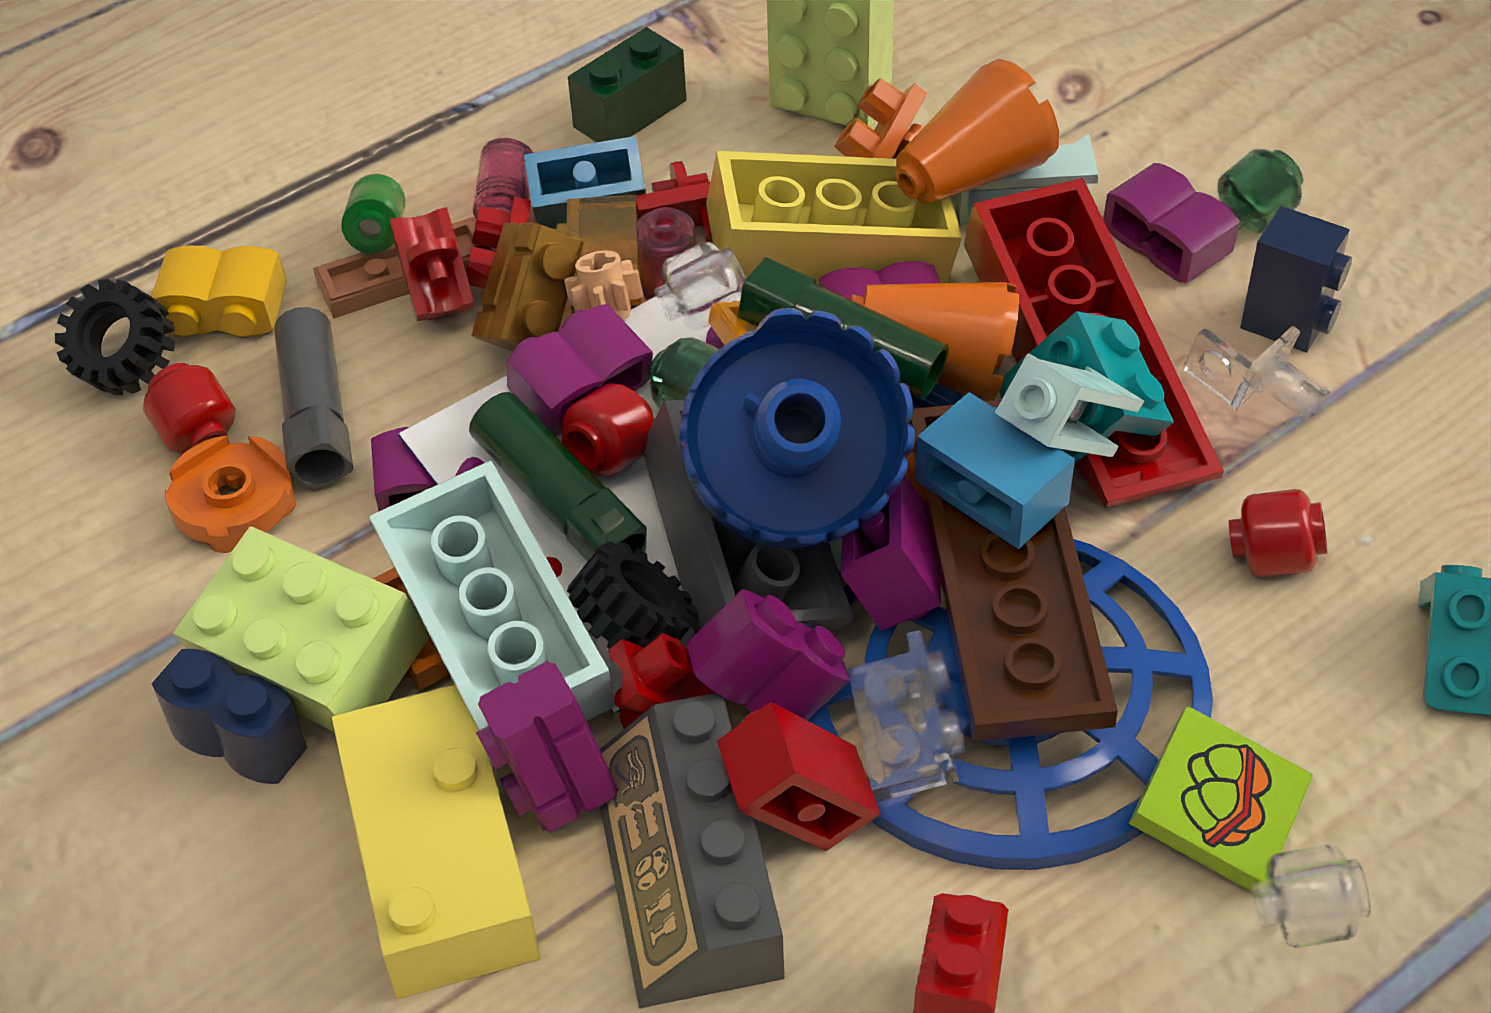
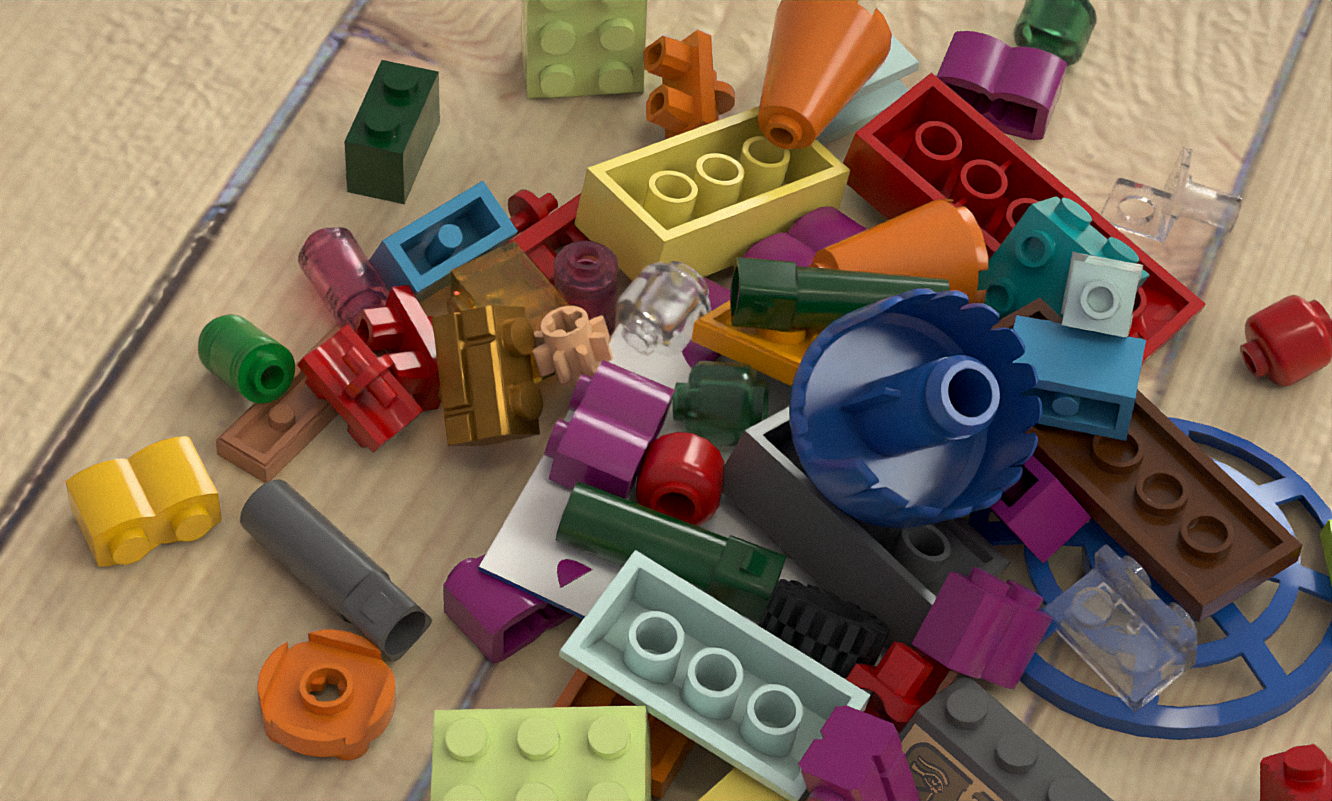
camera: 35 degrees left, 0 degrees up
(91, 321) = (60, 561): black tyre -> none
(187, 406) = (222, 632): red head -> none
(797, 777) = (1077, 715): red brick -> none
(1295, 277) = (1158, 101): dark blue brick -> none

